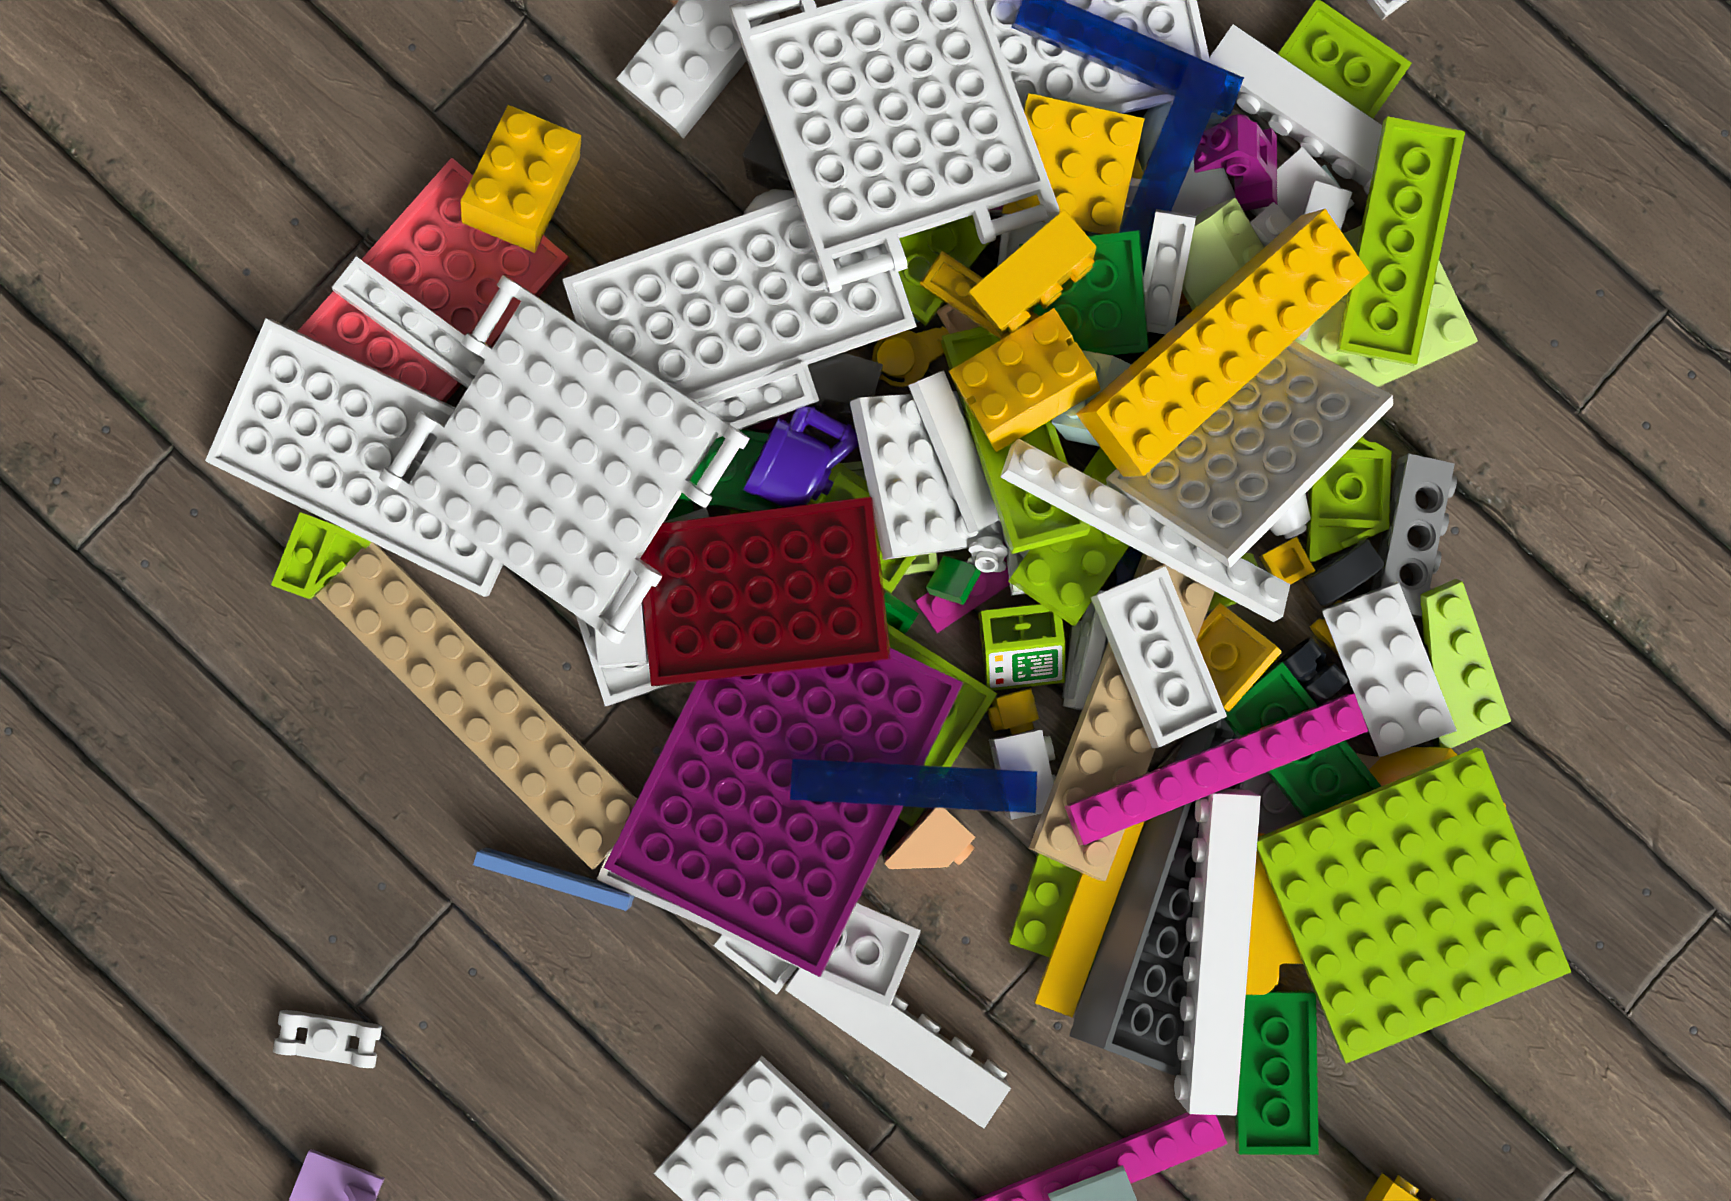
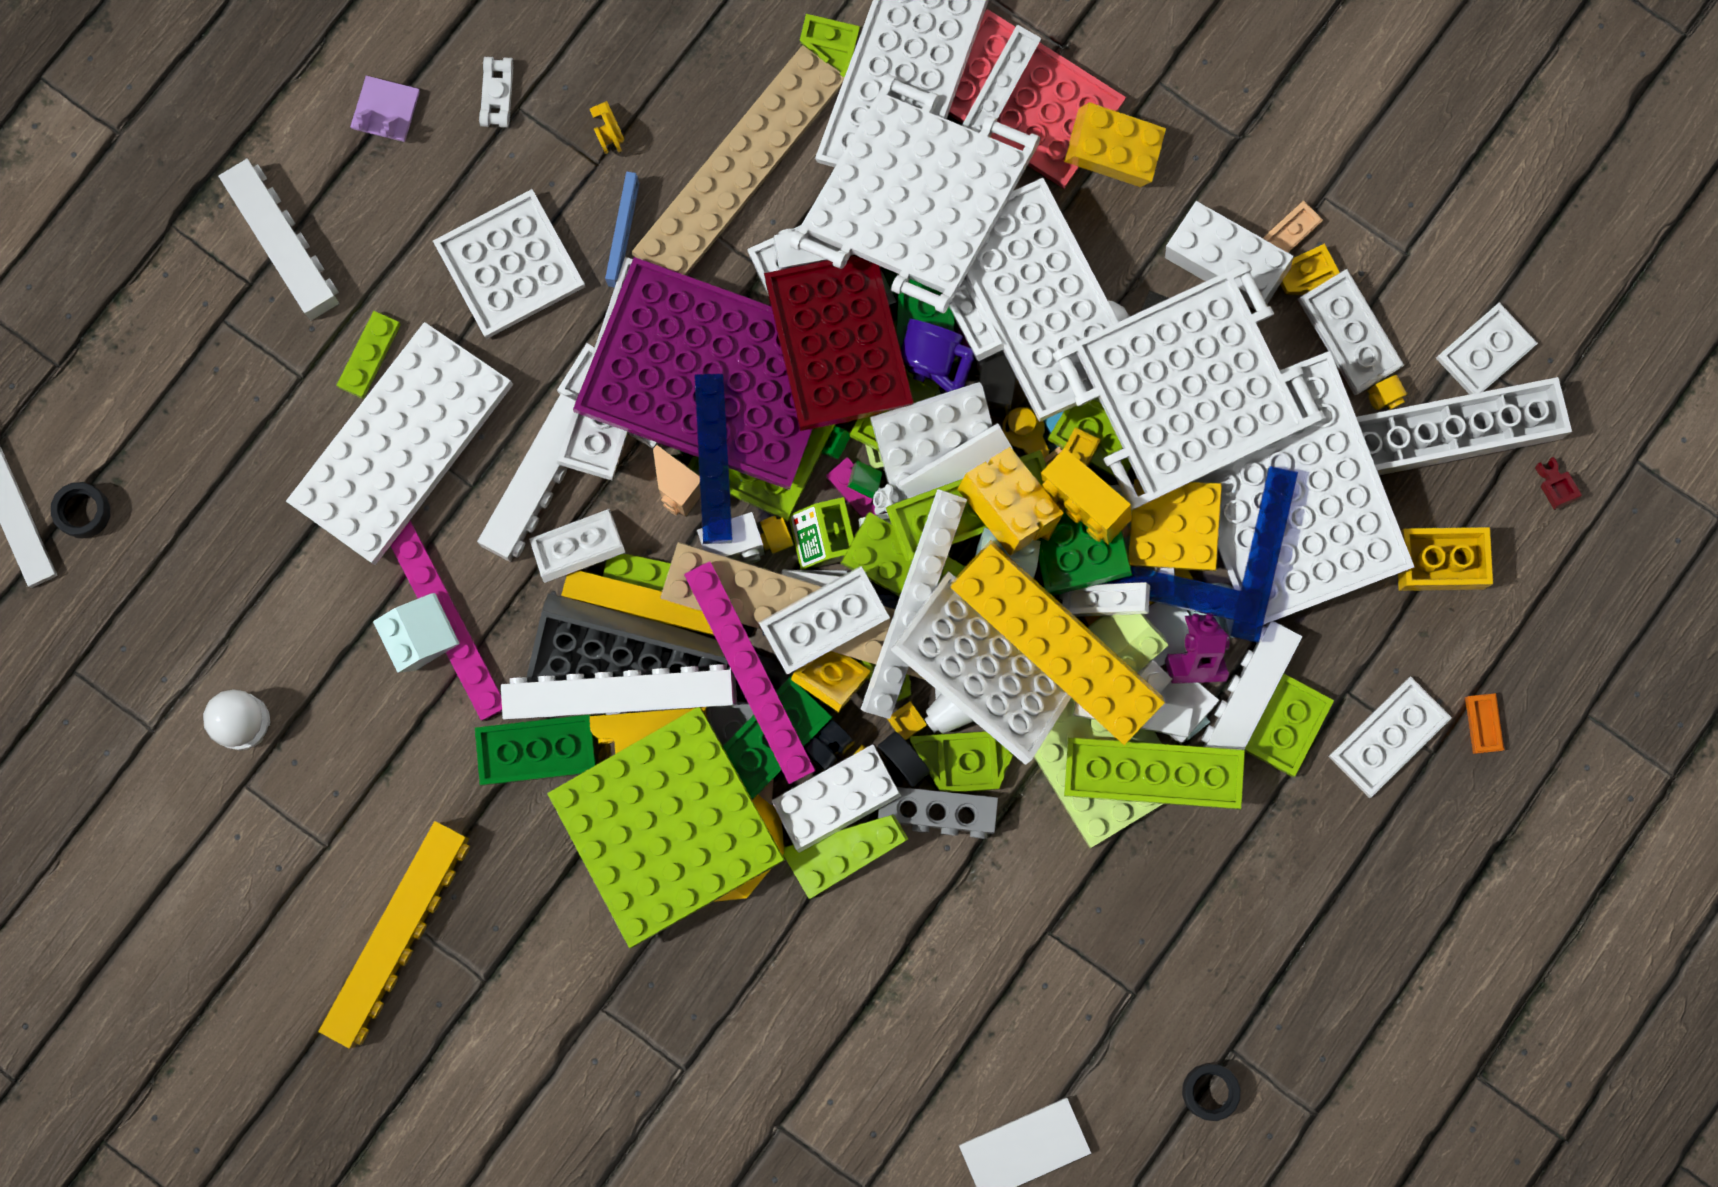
camera: 85 degrees right, 5 degrees down
(410, 882) = (609, 132): none -> yellow piece
(584, 1045) = (509, 264): none -> white plate
(1002, 988) = (576, 545): none -> white tile

